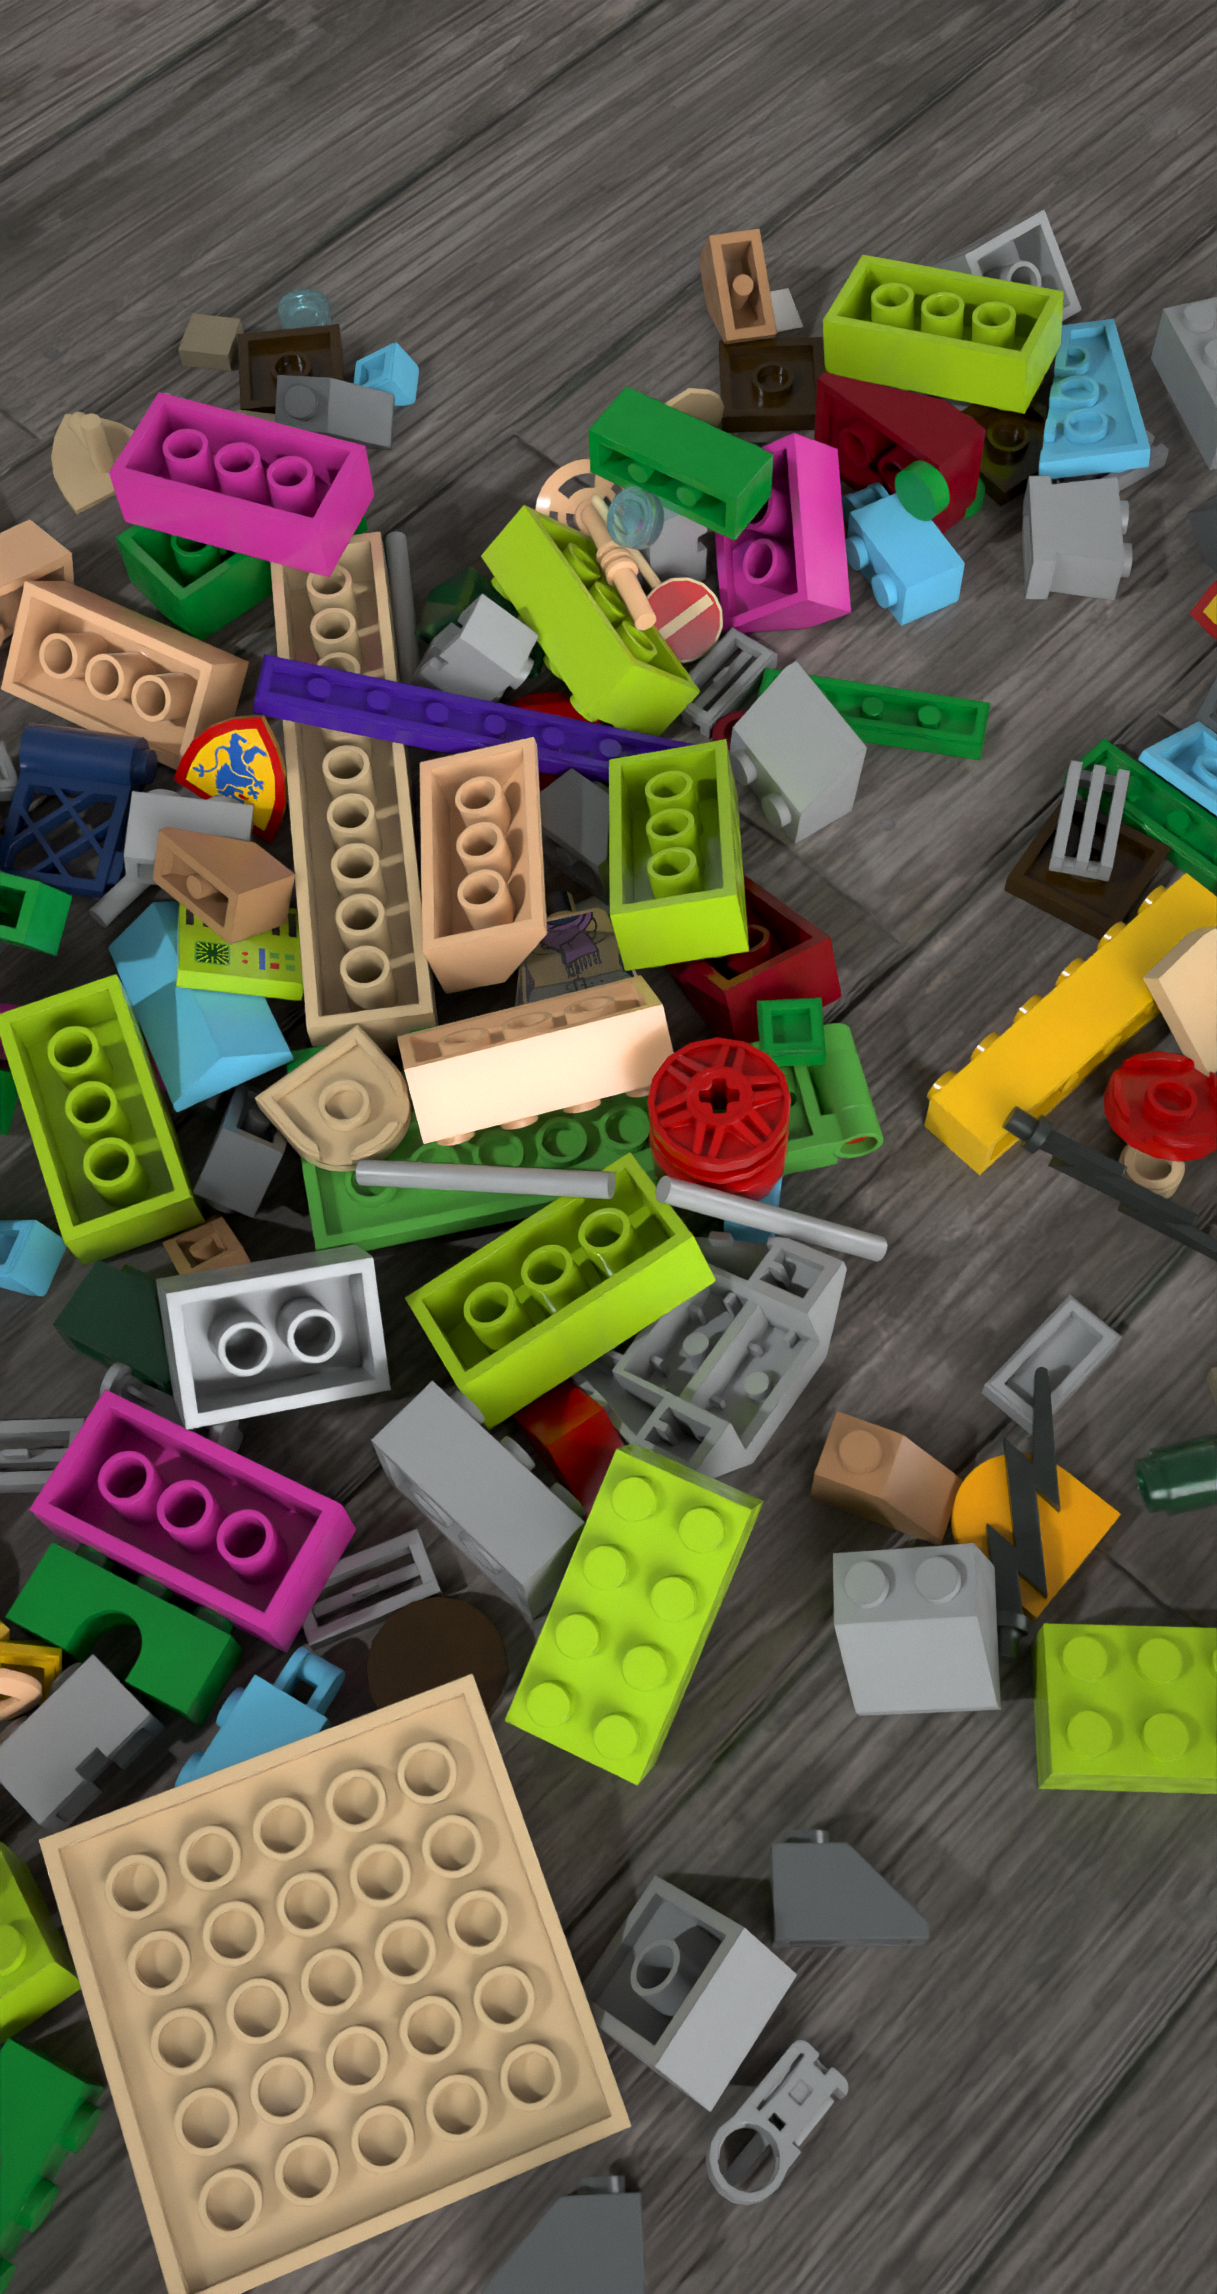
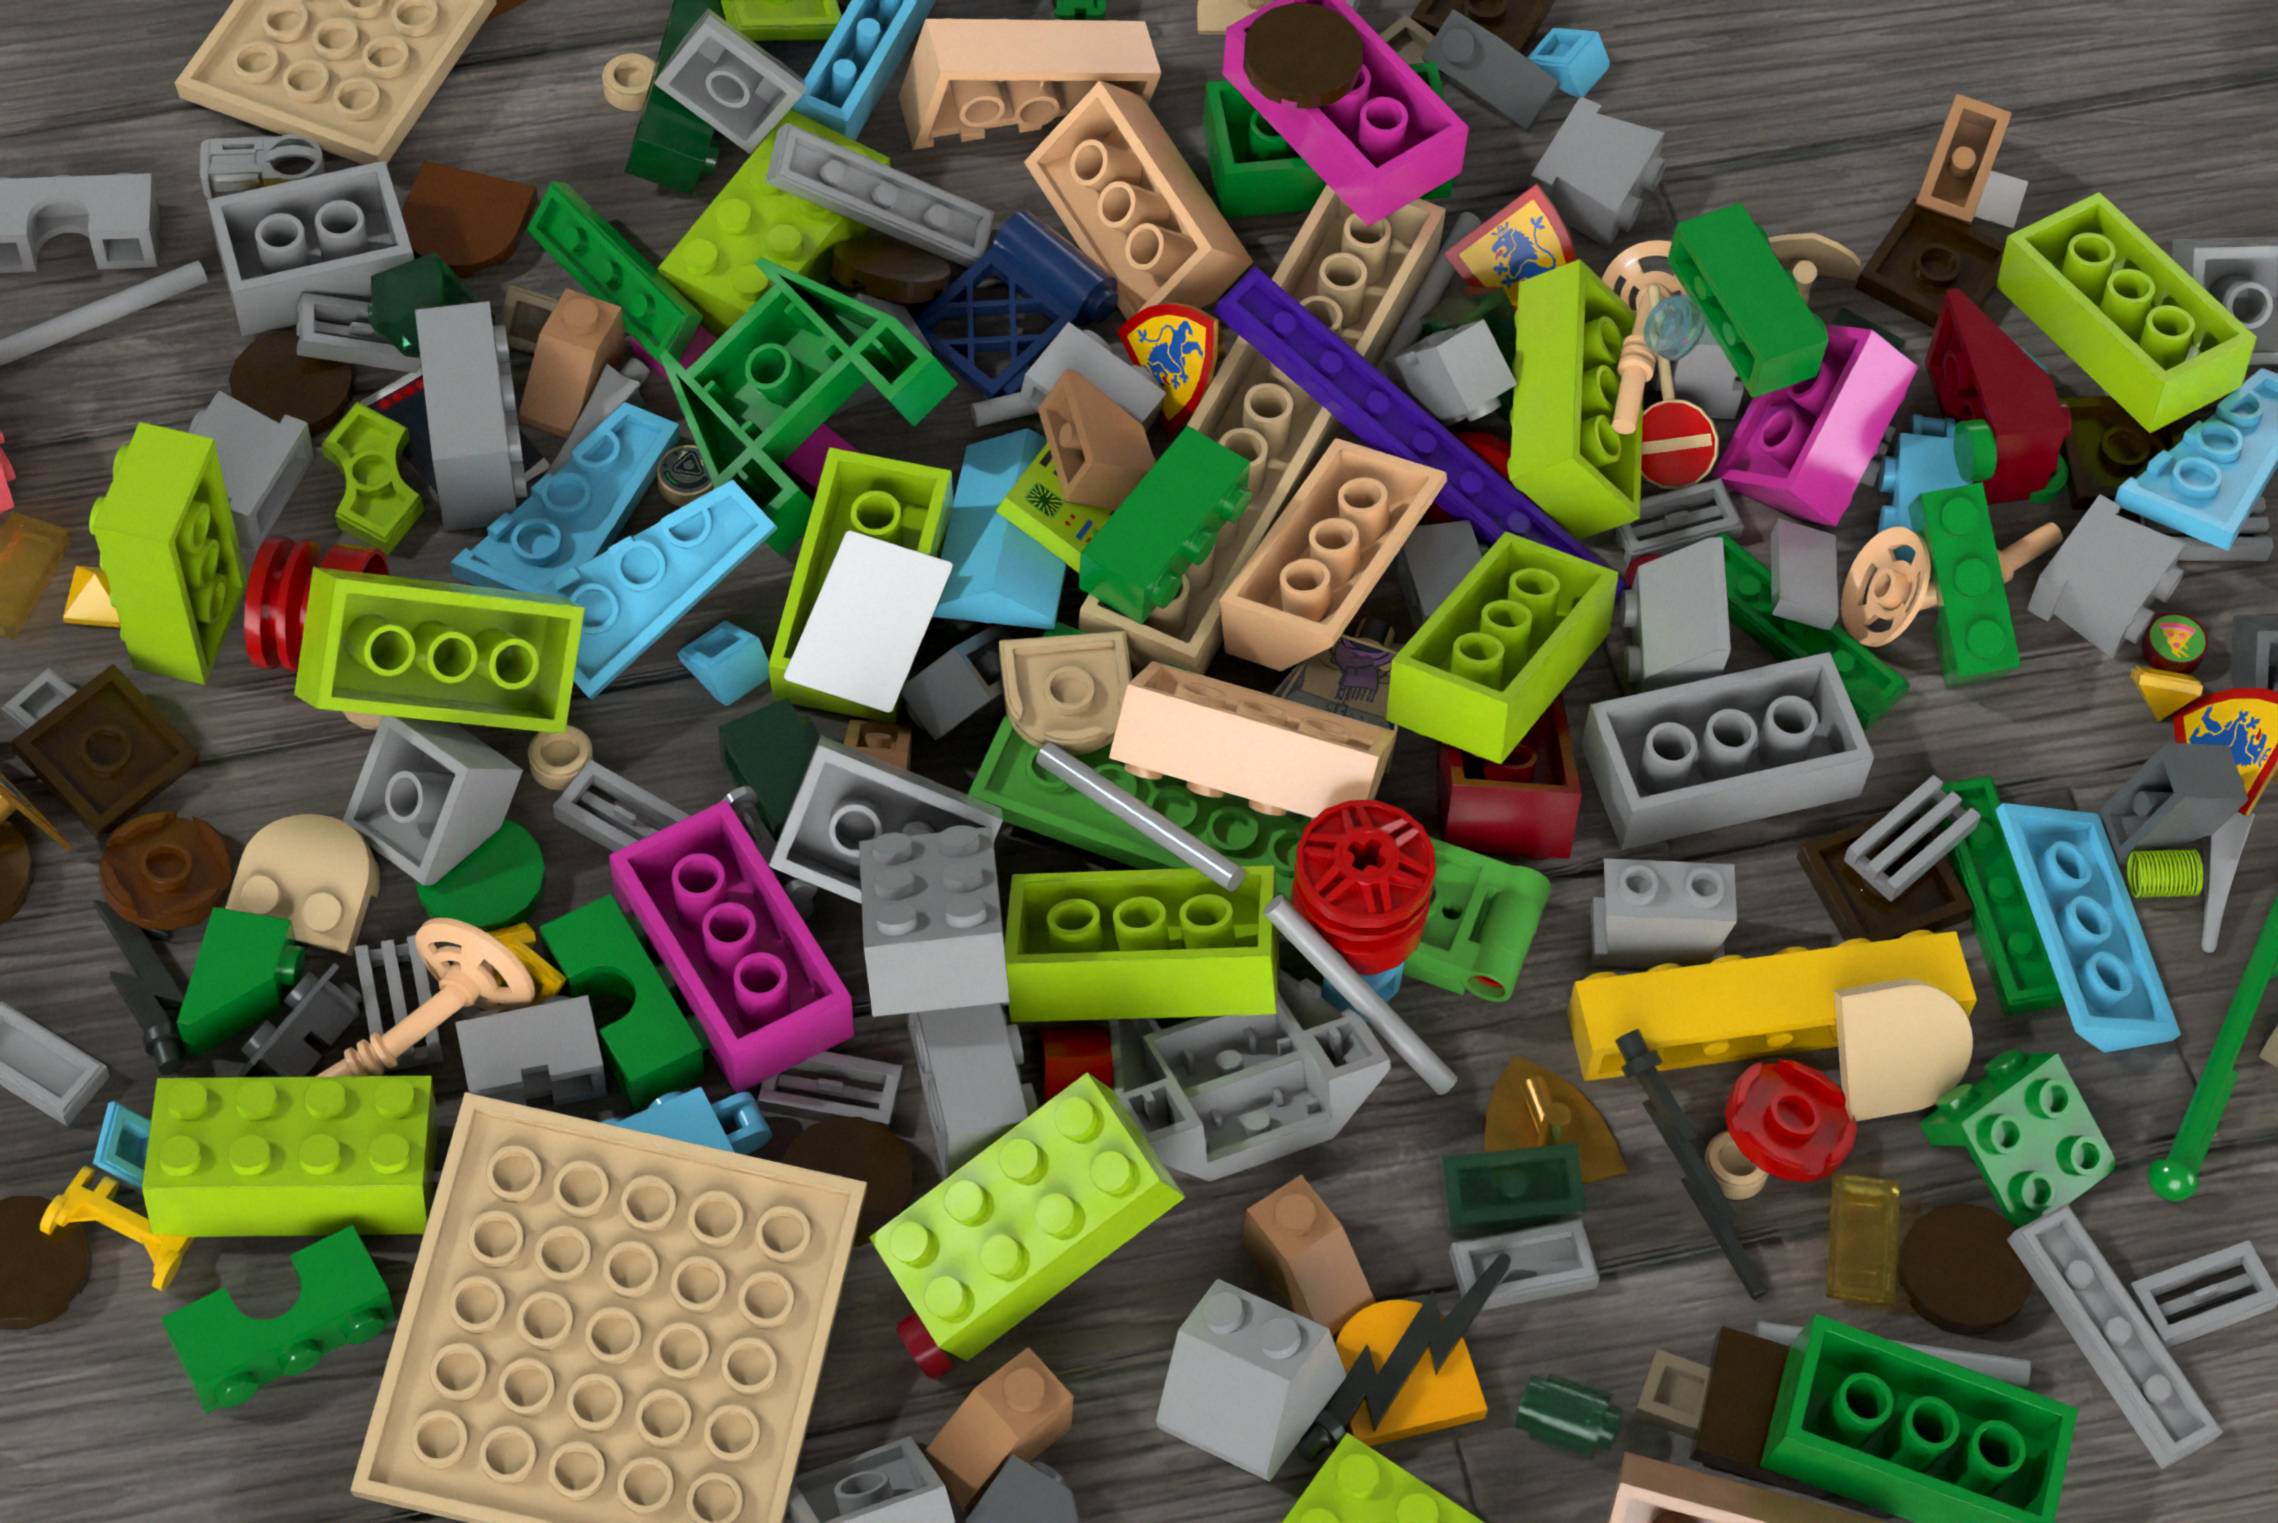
camera: 25 degrees right, 5 degrees down
(129, 1150) = (868, 621): none -> white sticker
(190, 459) = (1303, 55): none -> dark brown tile
(335, 914) = (1165, 525): none -> green brick
(381, 1394) = (932, 921): none -> light grey brick
(452, 533) = (1514, 245): none -> shield
(470, 448) = (1599, 171): none -> light grey hips
(613, 1788) = (923, 1348): none -> dark red tile
(733, 1822) = (1009, 1413): none -> medium nougat slope
(792, 1031) = (1490, 854): green tile -> none
(853, 664) = (1804, 575): none -> light grey tile
(901, 835) = (1726, 750): none -> light grey brick
(937, 631) = (1904, 588): none -> light nougat dish
(954, 997) = (1662, 913): none -> light grey hips
(969, 566) = (1973, 612): none -> green arch
(983, 1241) = (1542, 1109): none -> pearl gold shield
(1007, 1307) = (1511, 1187): none -> clear green brick
(1155, 561) = (2175, 643): none -> tile
(1176, 599) = (2165, 690): none -> yellow slope

